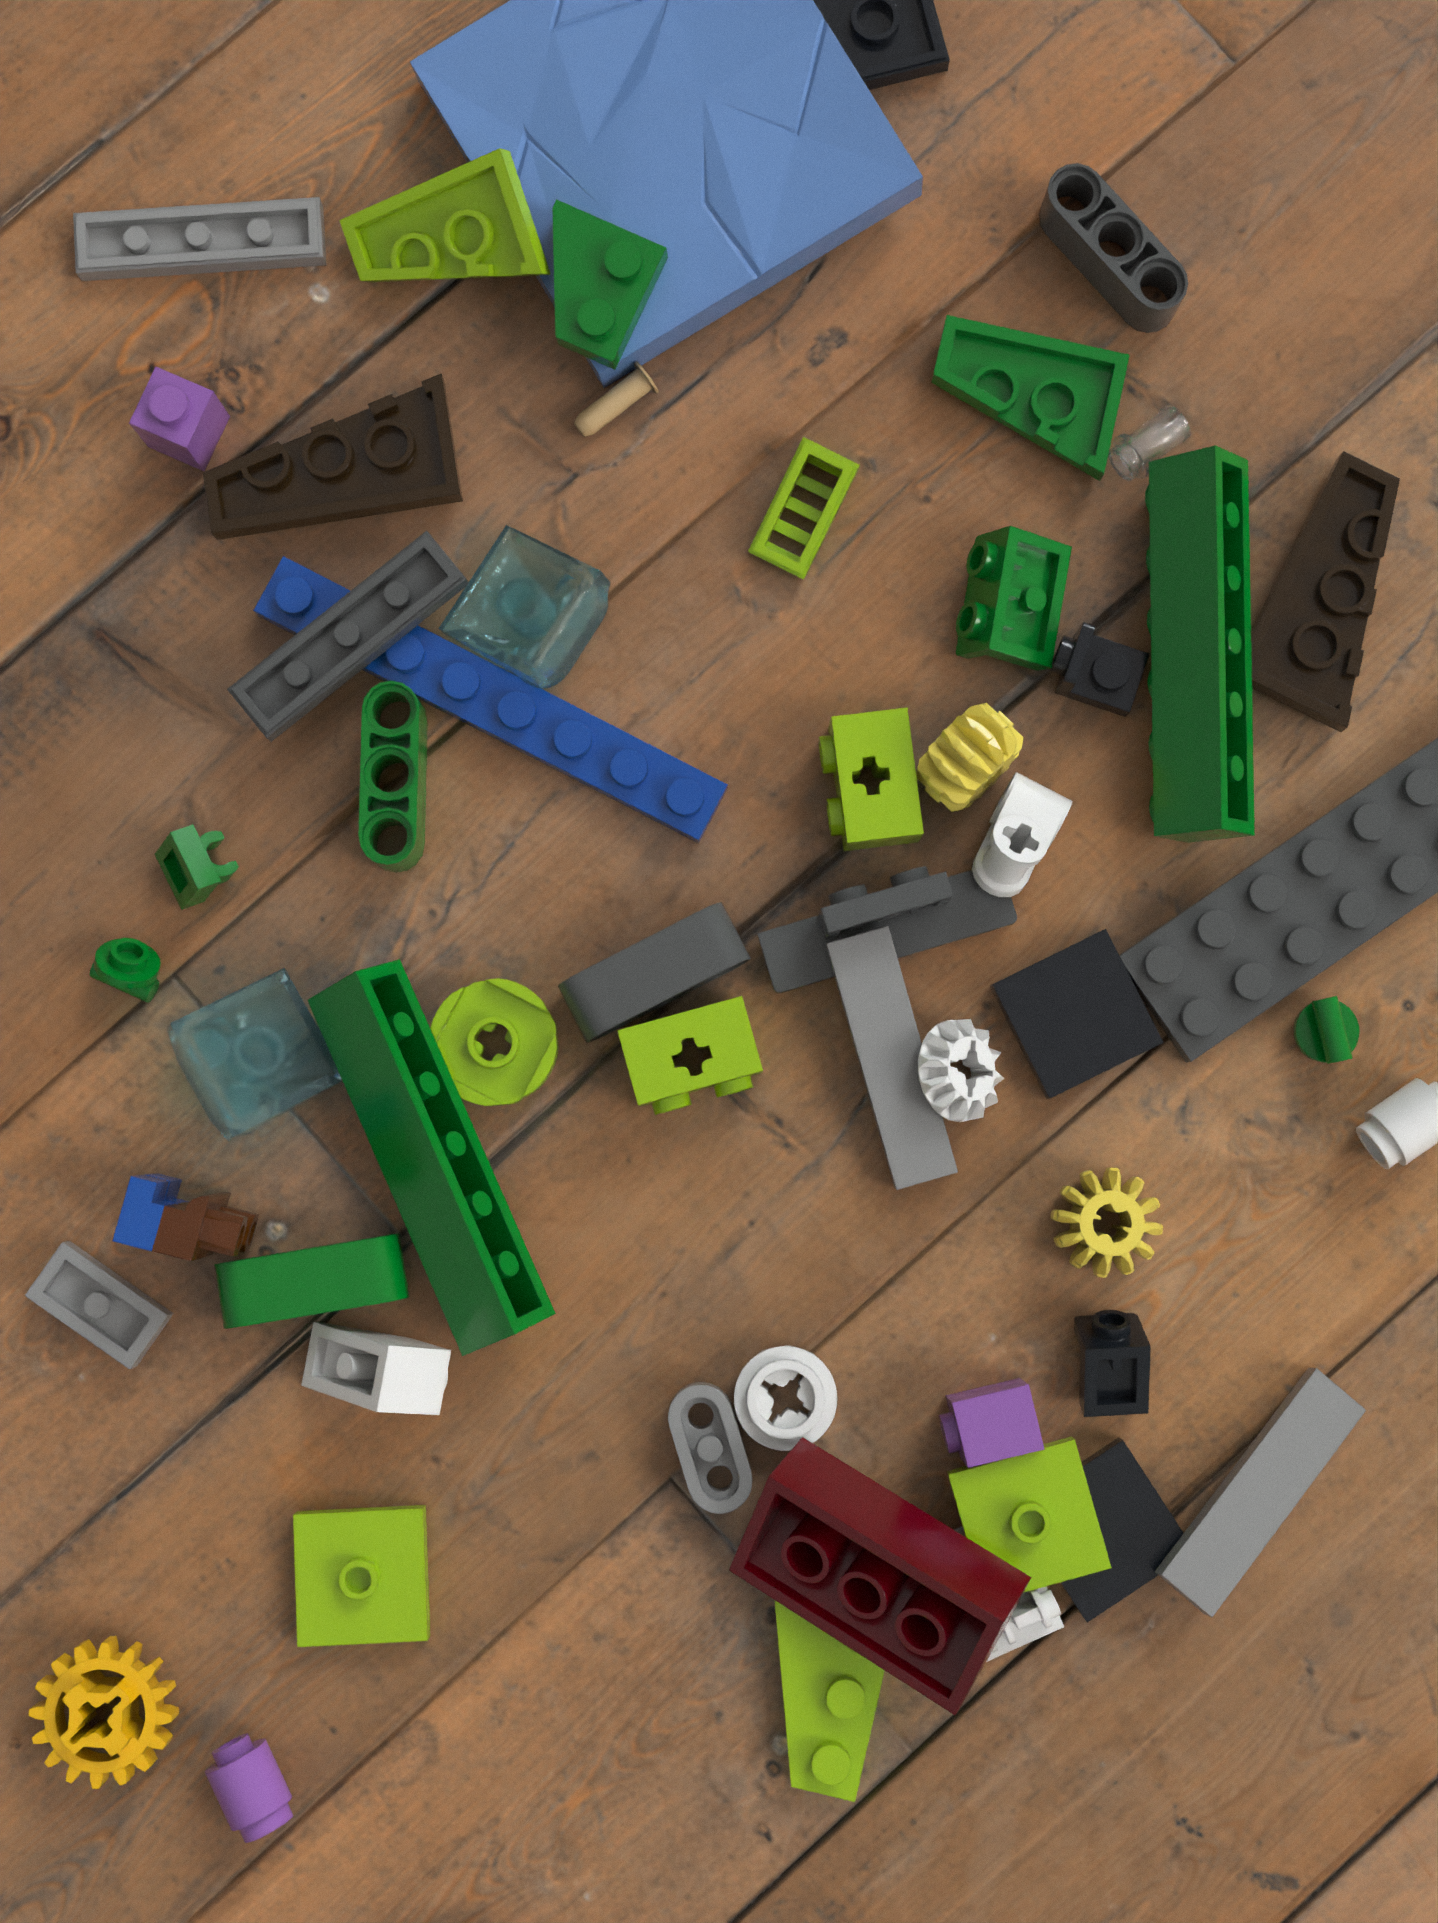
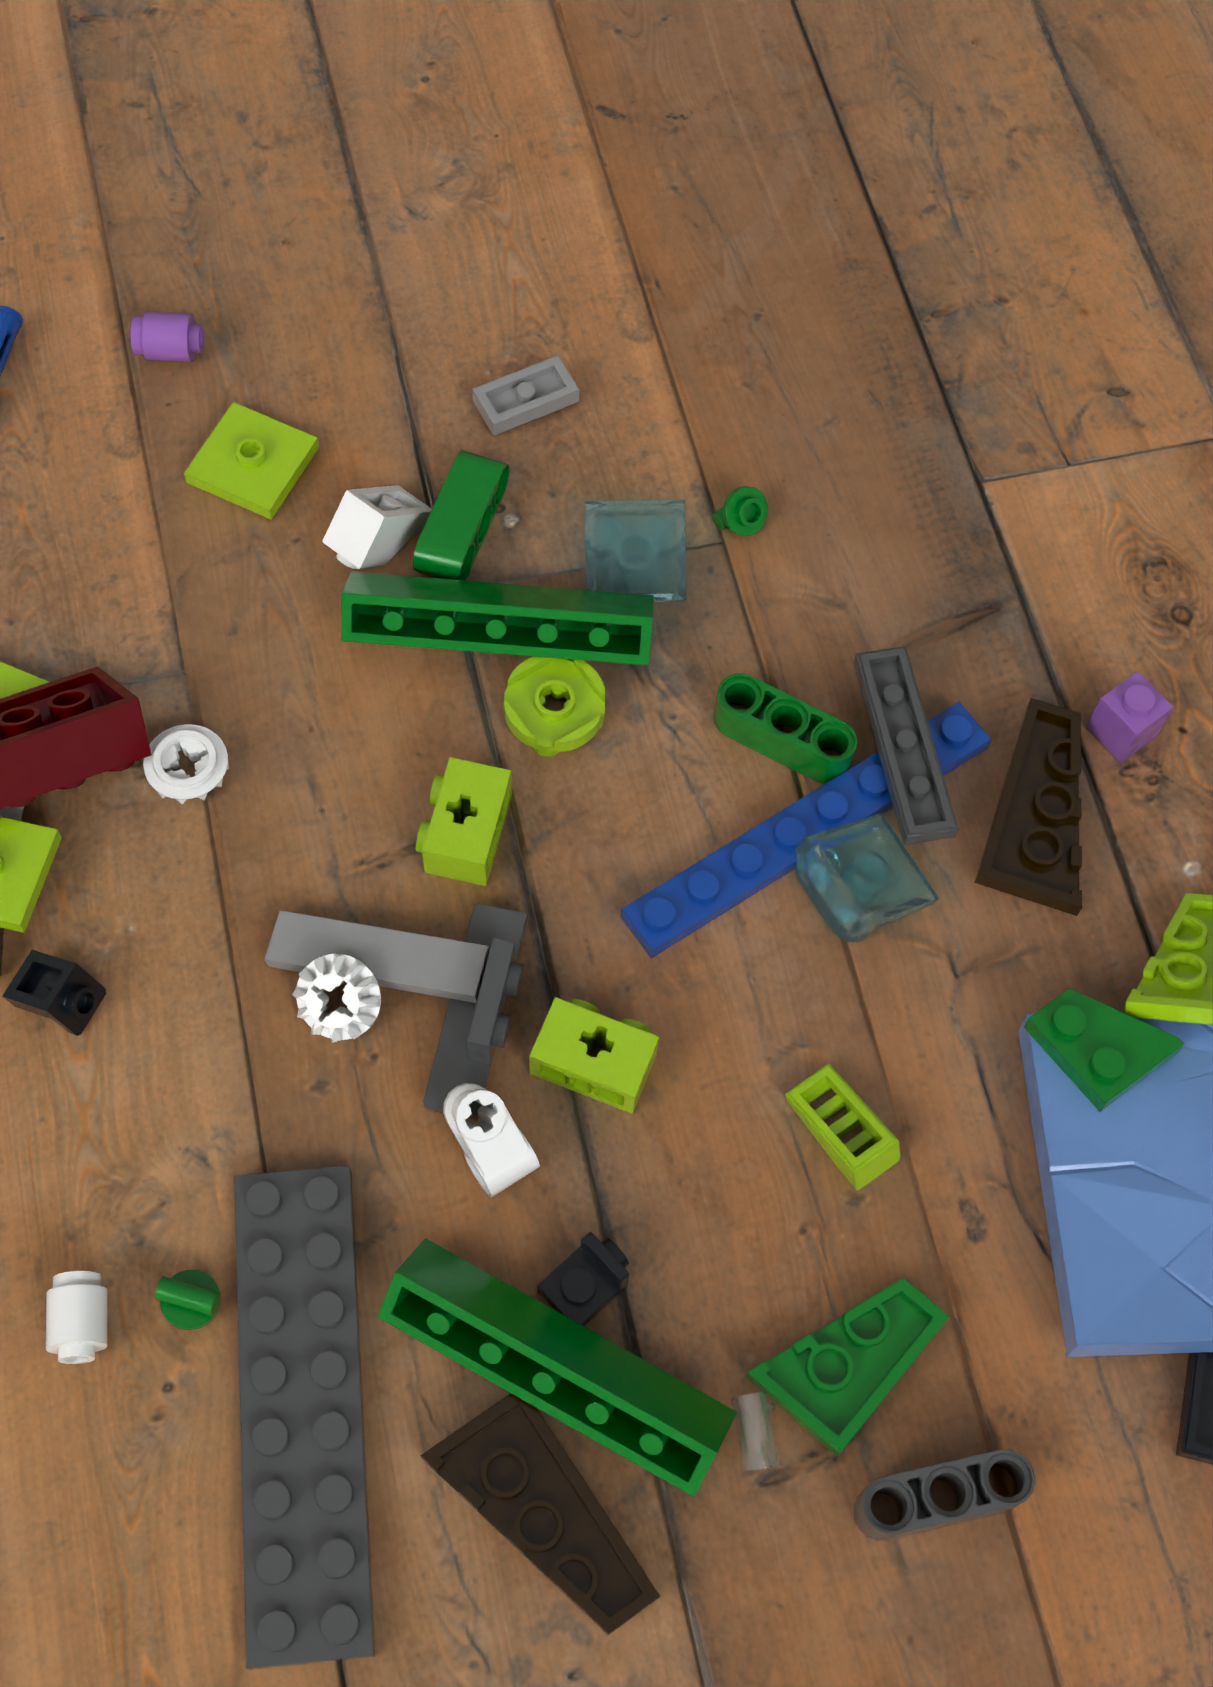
camera: 115 degrees right, 20 degrees down
(122, 1731) = (246, 287): yellow gear -> none
(179, 1228) = (548, 449): reddish brown hips -> none
(189, 867) = (791, 576): green tile -> none
(615, 401) = (1001, 1031): tan piece -> none
(654, 972) = (540, 829): dark grey beam -> none
(710, 1446) = (190, 695): light grey plate -> none
(969, 757) = (570, 1127): light yellow gear -> none
(991, 1423) = (72, 884): medium lavender brick -> none
(1013, 598) = (680, 1243): green bracket -> none
(1076, 1014) = (325, 1113): black tile -> none
(1113, 1199) = (146, 1028): light yellow gear -> none

